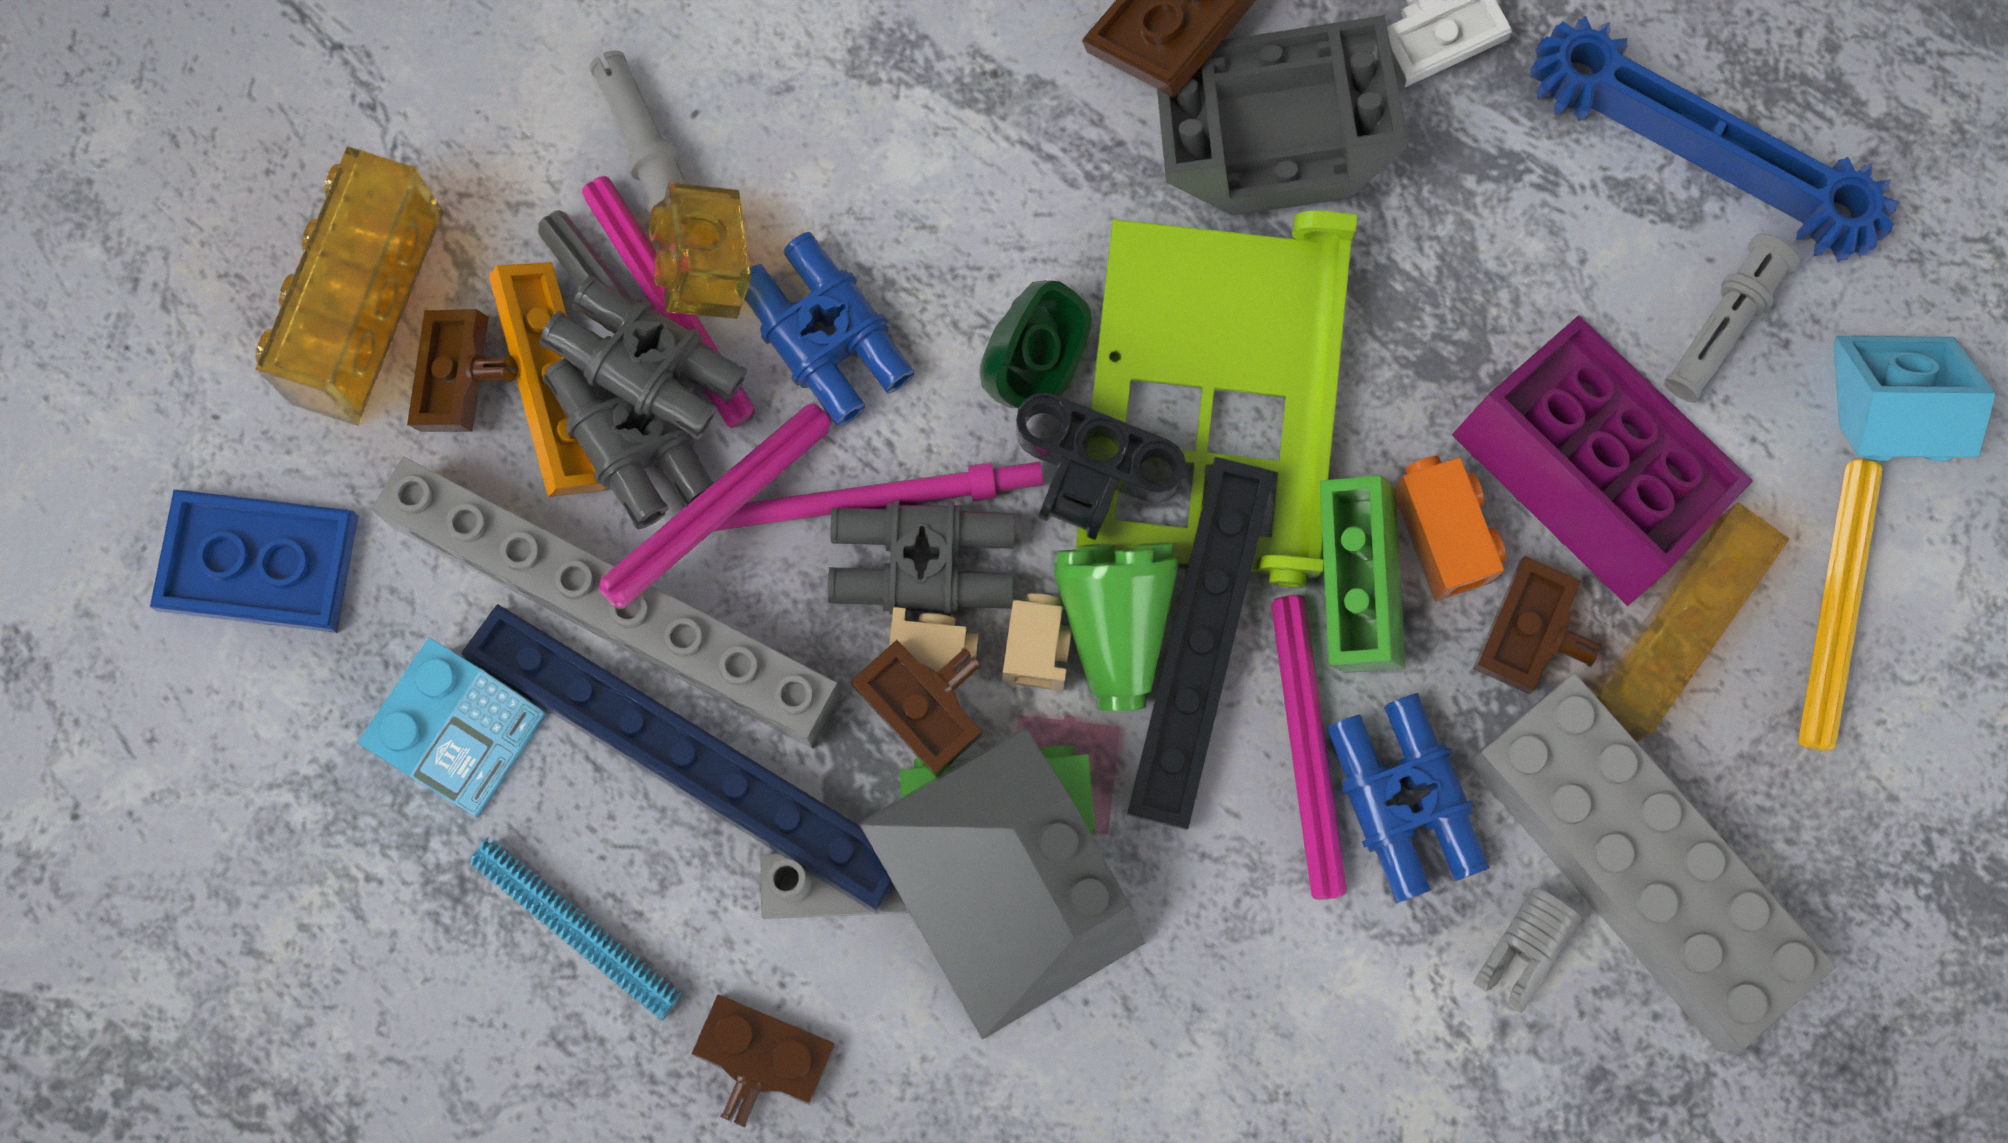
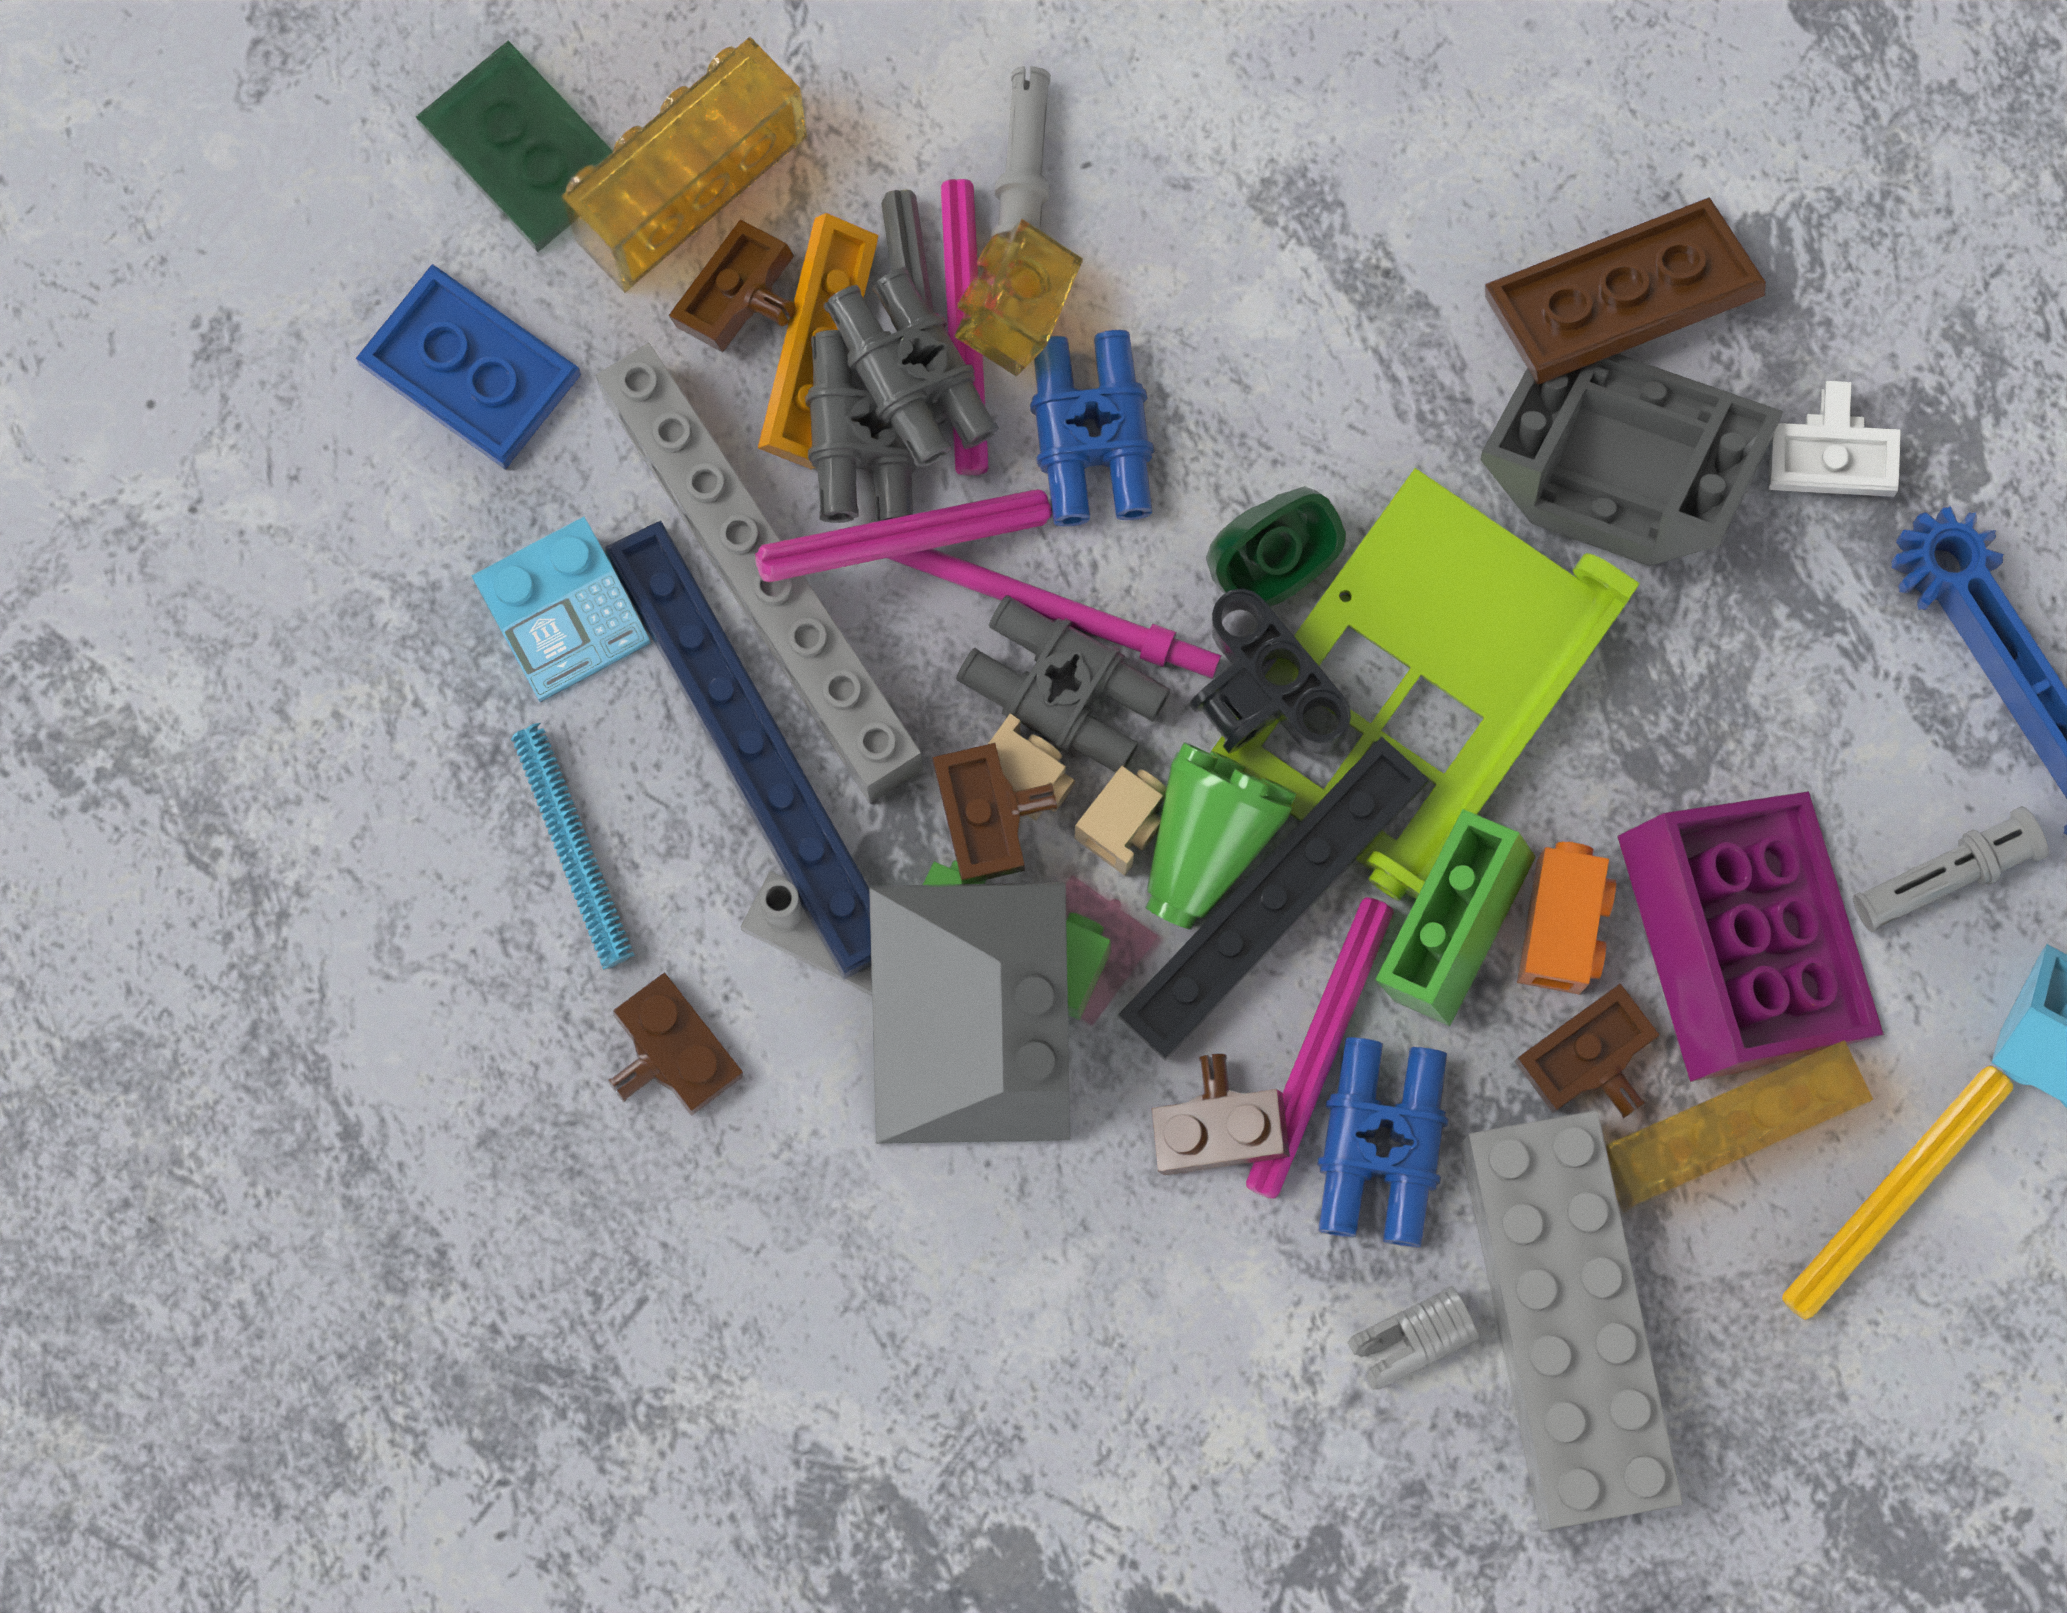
camera: 30 degrees right, 0 degrees up
(189, 346) = (514, 141): none -> clear green tile
(1265, 860) = (1219, 1125): none -> plate

